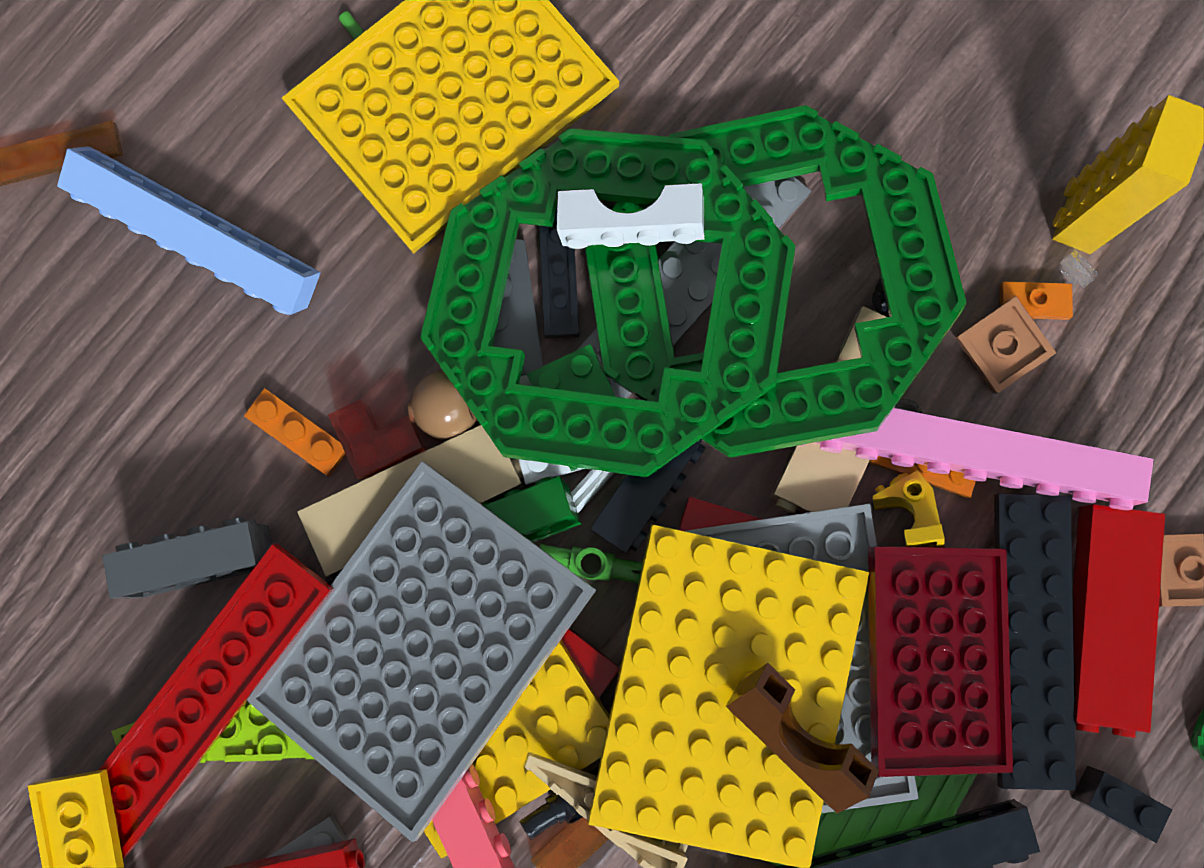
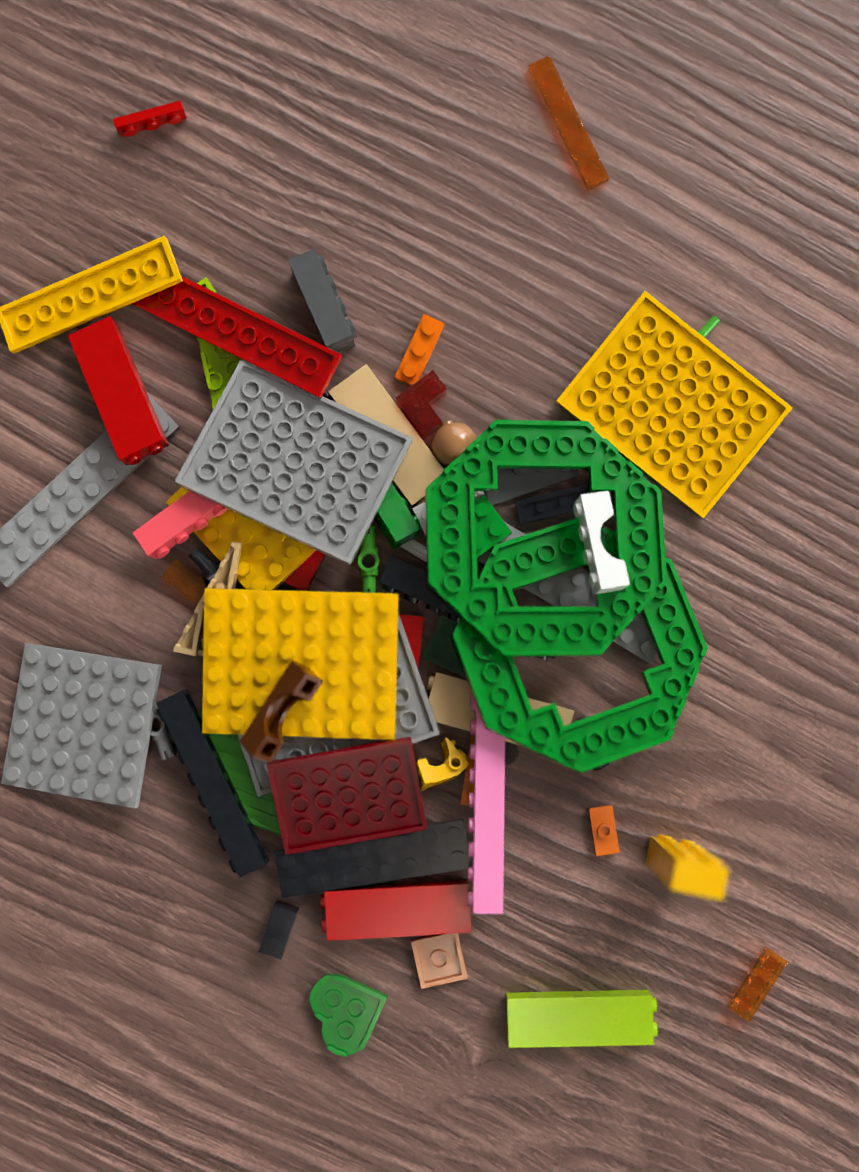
camera: 75 degrees right, 5 degrees up
(188, 229) = (541, 248): light blue brick -> none
(739, 477) = (442, 648): none -> clear green plate
(1005, 345) = (567, 812): nougat tile -> none
(1077, 269) = (630, 854): clear plate -> none

